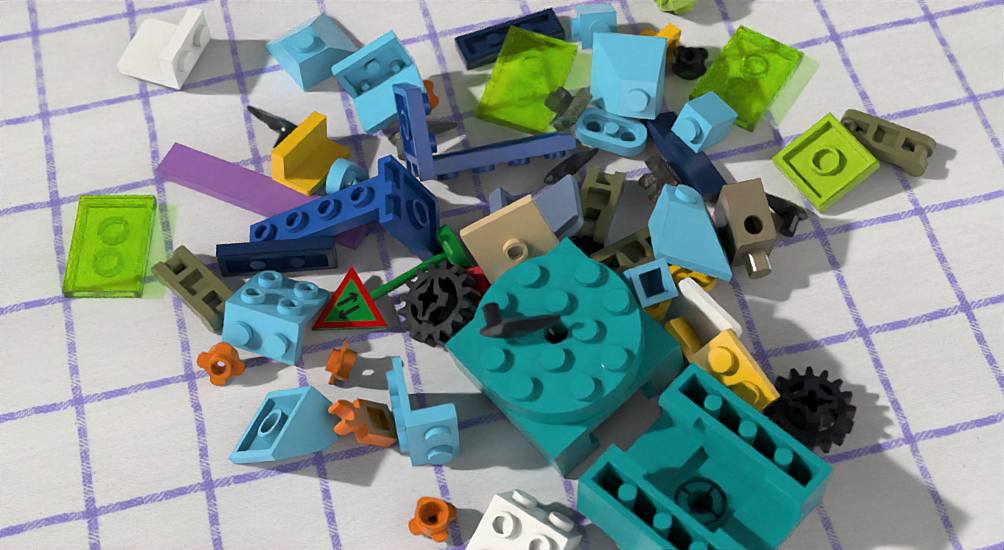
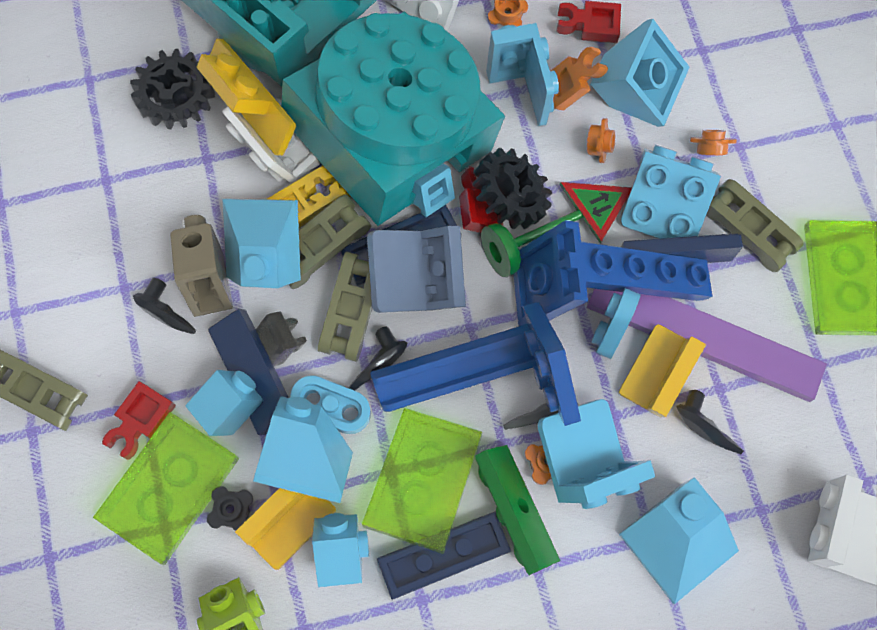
camera: 175 degrees right, 15 degrees up
(329, 501) = (596, 20): none -> red plate
(448, 61) = (516, 509): none -> green tile
(509, 237) = (440, 216): tan plate -> none
(515, 326) = (445, 69): black bar -> none
(567, 106) = (376, 429): clear smoke tile -> none
(650, 283) = (309, 176): medium azure brick -> none
(779, 122) = (141, 414): none -> red plate
(825, 162) = (100, 356): lime plate -> none

